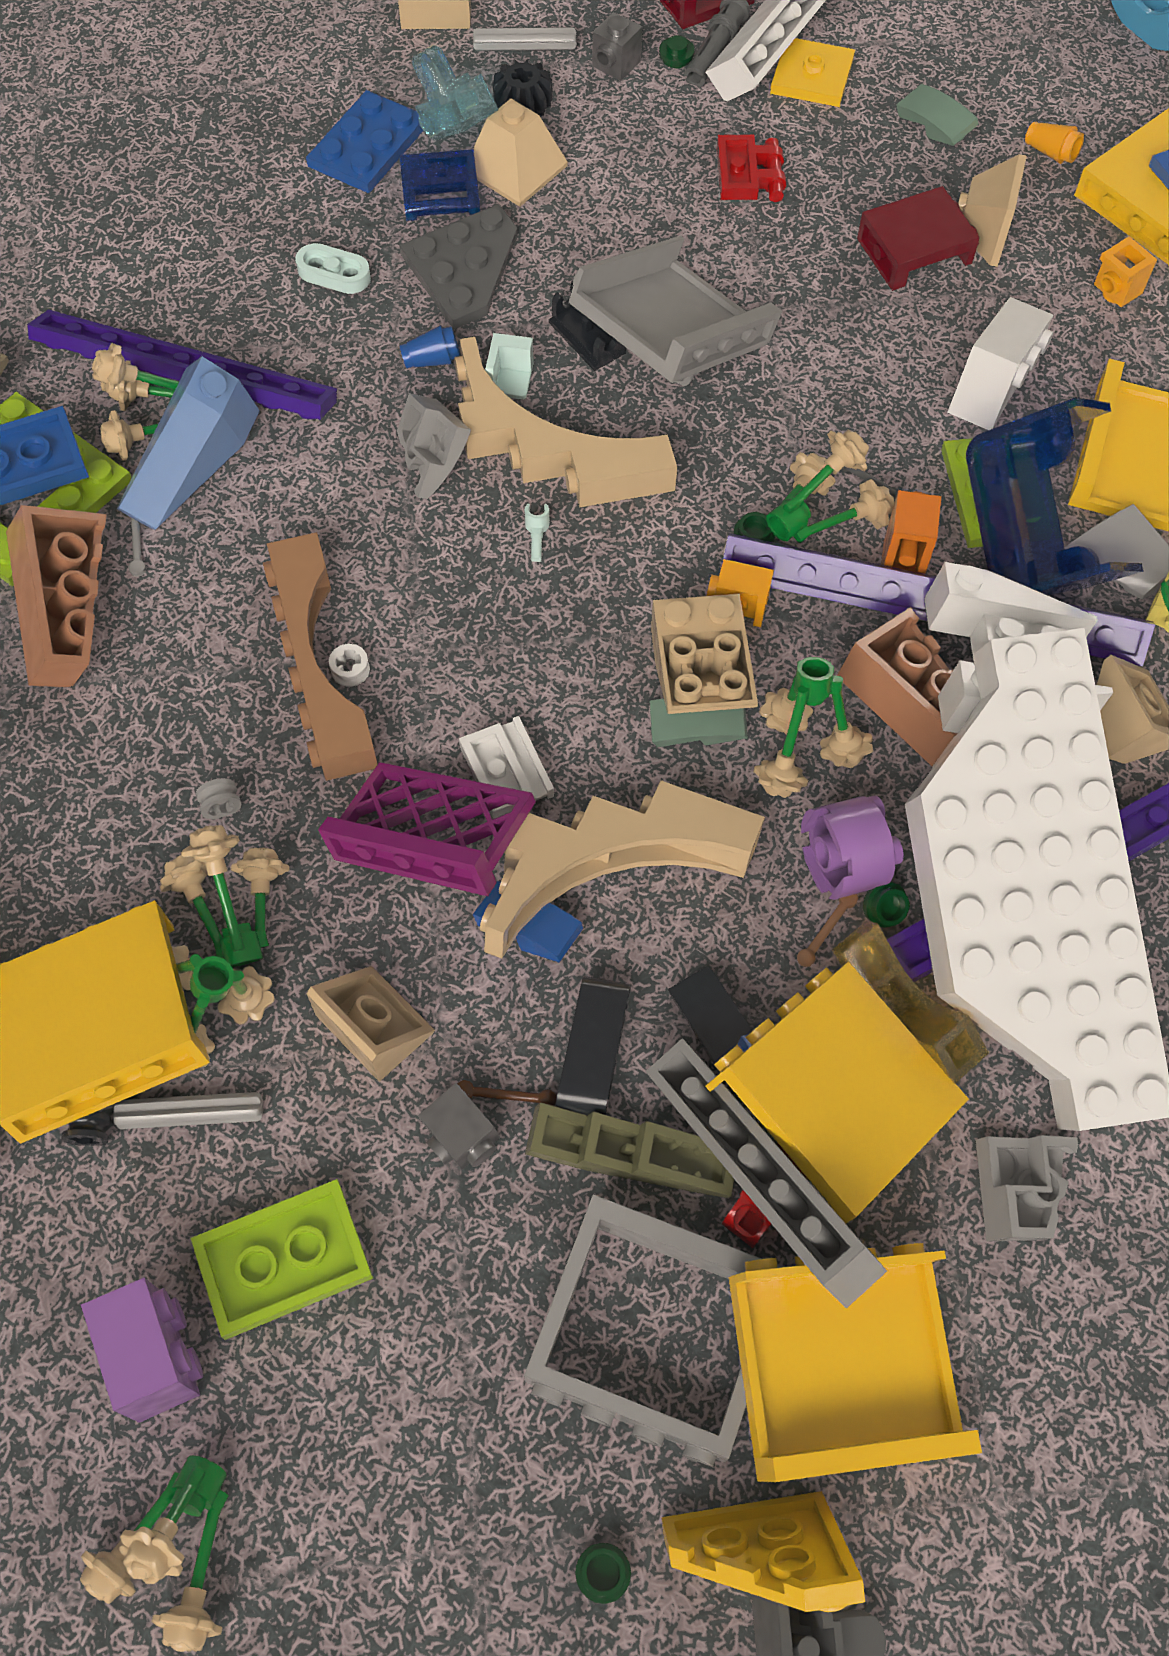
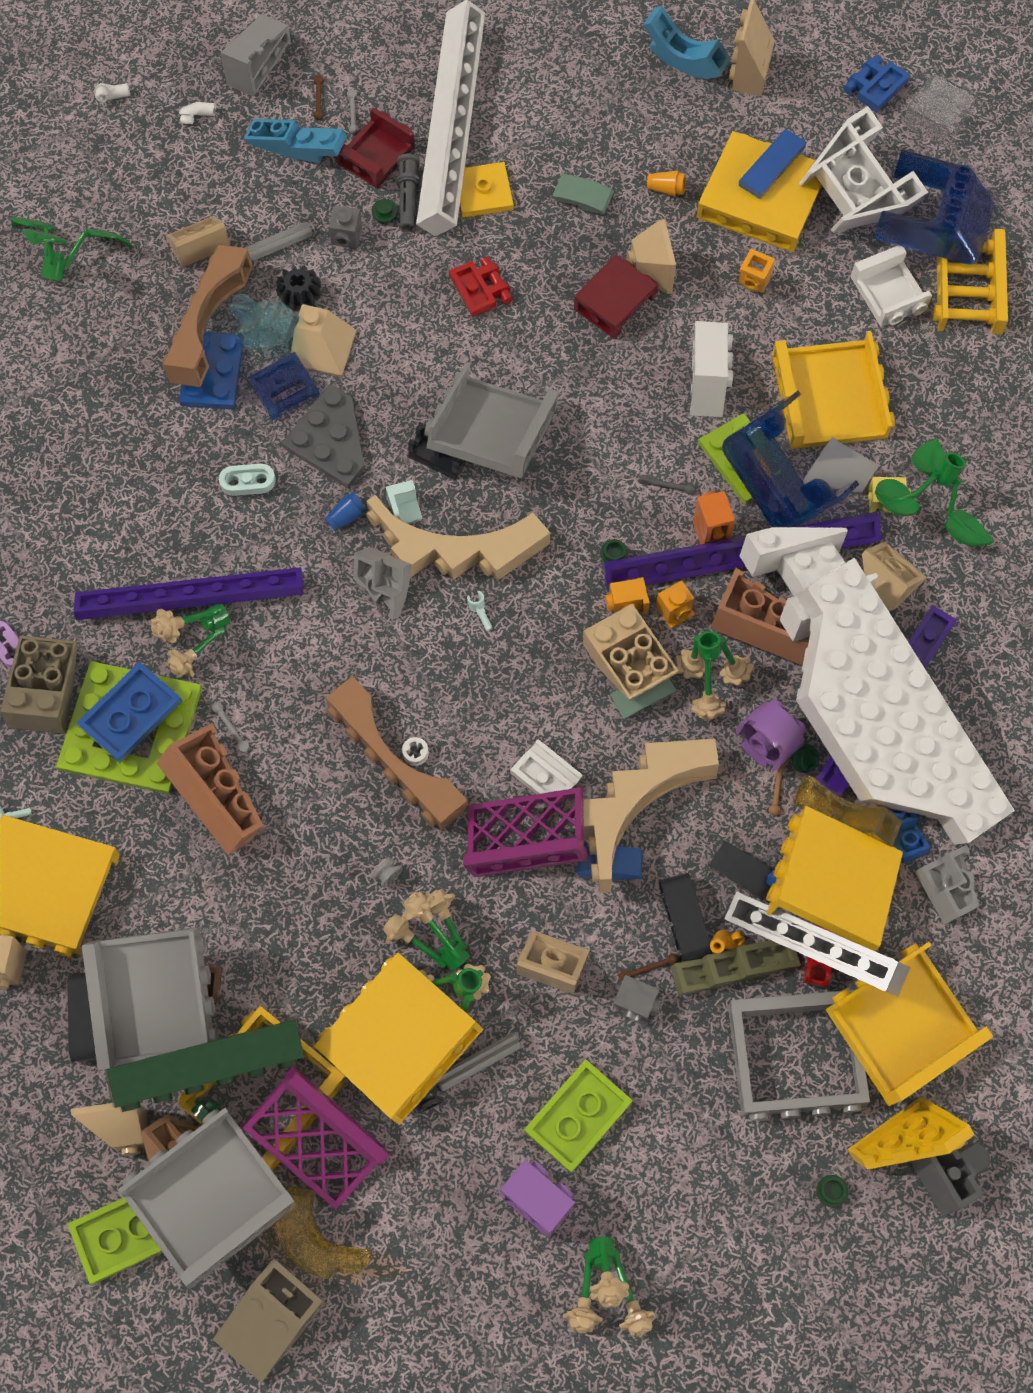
camera: 25 degrees left, 5 degrees up
(194, 438) = (232, 647): medium blue wedge -> none
(339, 99) = (225, 274): none -> medium nougat arch
(635, 1106) = (727, 941): none -> light orange arm
(803, 625) = (675, 604): none -> light orange brick
(815, 476) = (635, 537): plant -> none
(991, 1085) = (909, 837): none -> blue slope

